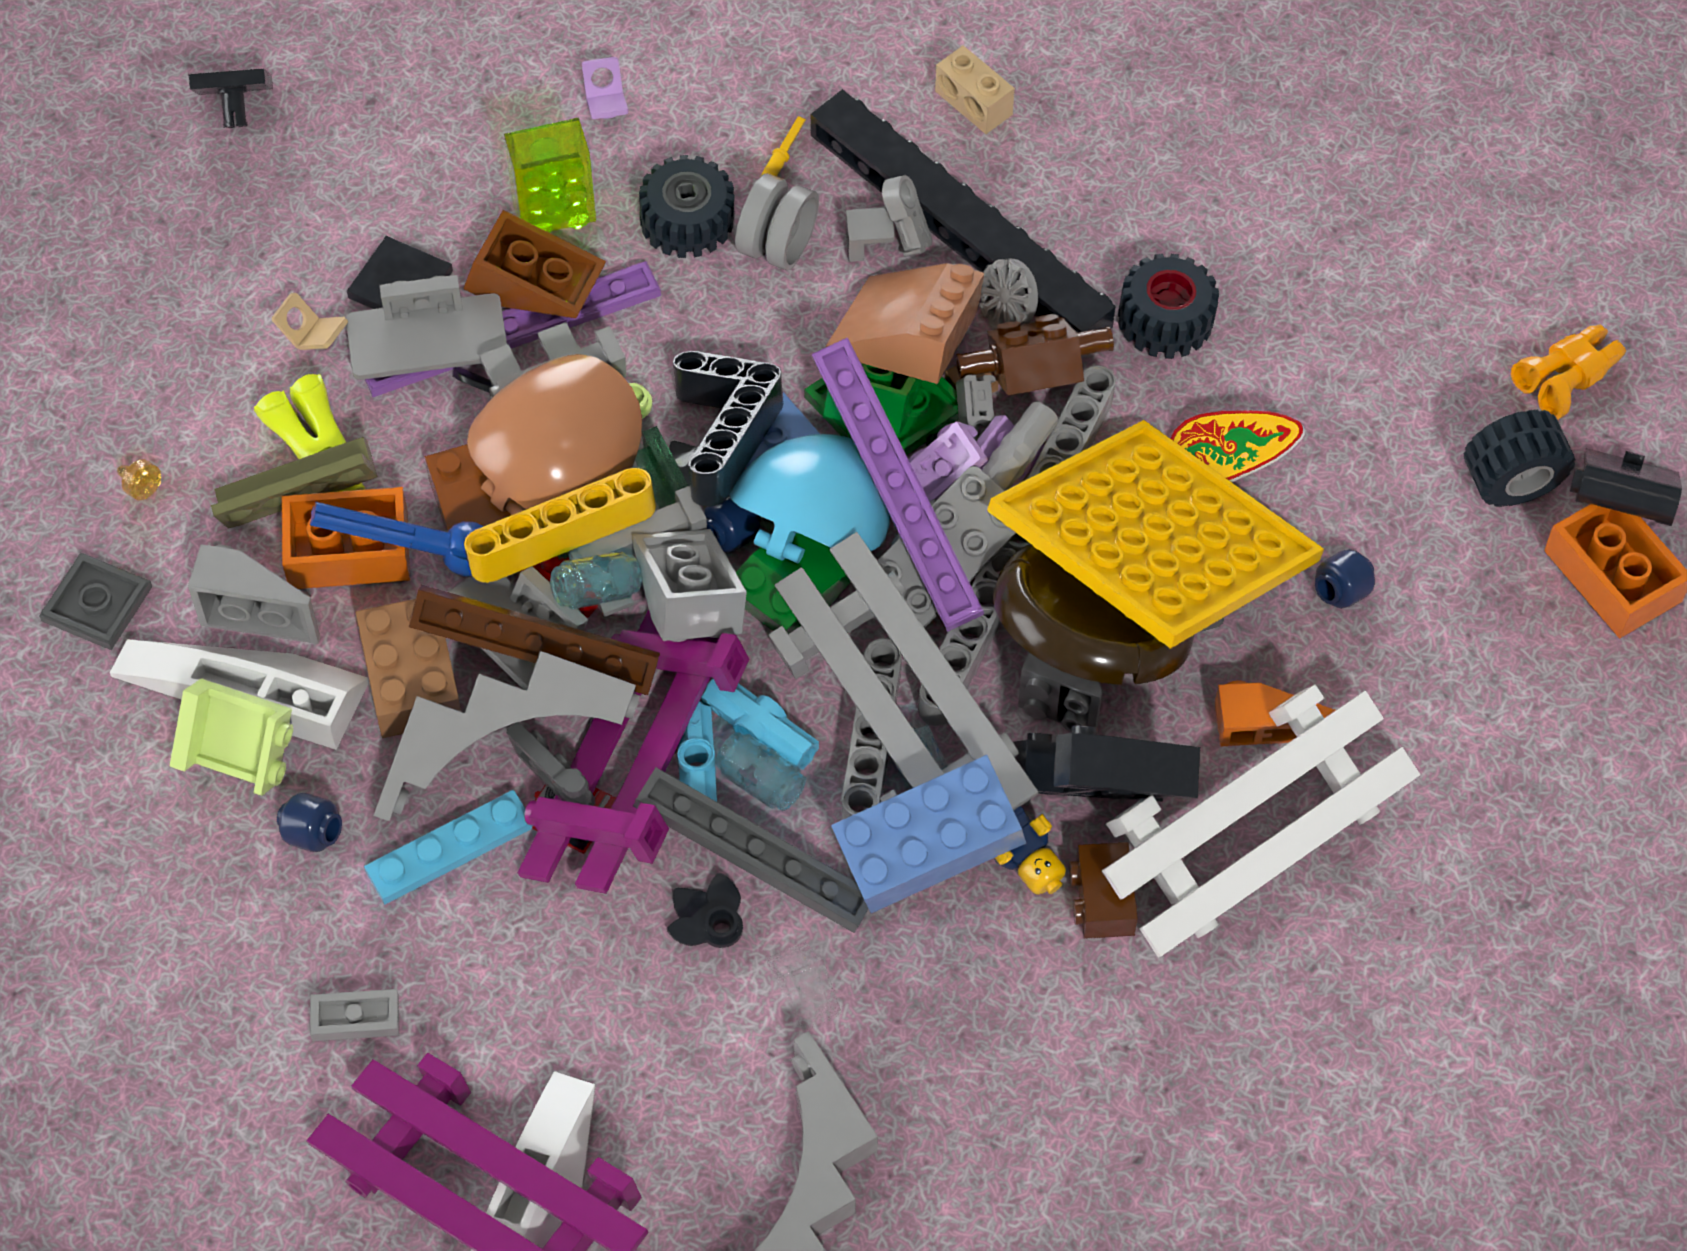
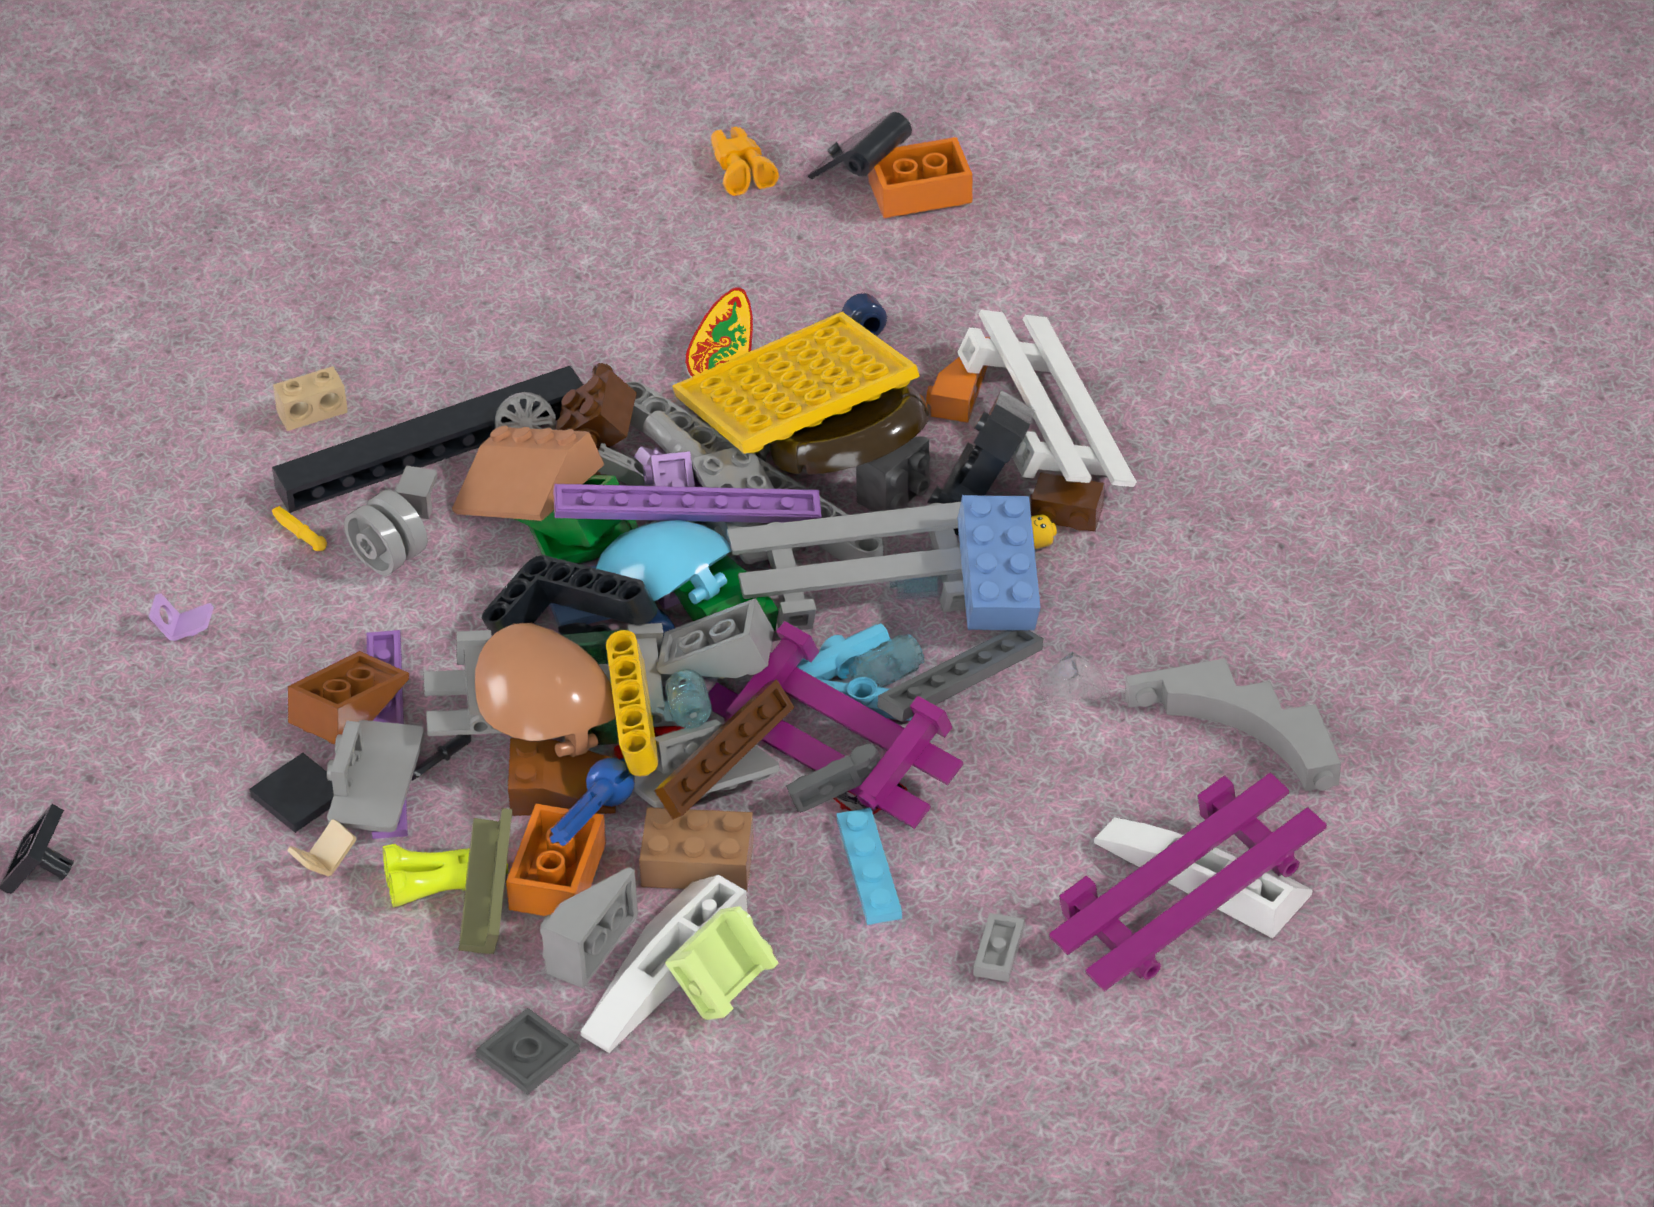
camera: 70 degrees left, 15 degrees down
(140, 479) = (421, 993): clear yellow tile -> none
(309, 822) = (814, 940): dark blue head -> none
(440, 732) = (783, 825): light grey arch -> none
(551, 175) = (273, 647): clear neon green brick -> none
(686, 206) = (331, 590): black wheel -> none
(702, 911) = (993, 725): black plate -> none
(866, 752) = (897, 602): light grey beam -> none
(906, 212) = (414, 455): light grey piece -> none
(1168, 305) = (578, 338): black wheel -> none
(1519, 458) = (816, 193): black wheel -> none

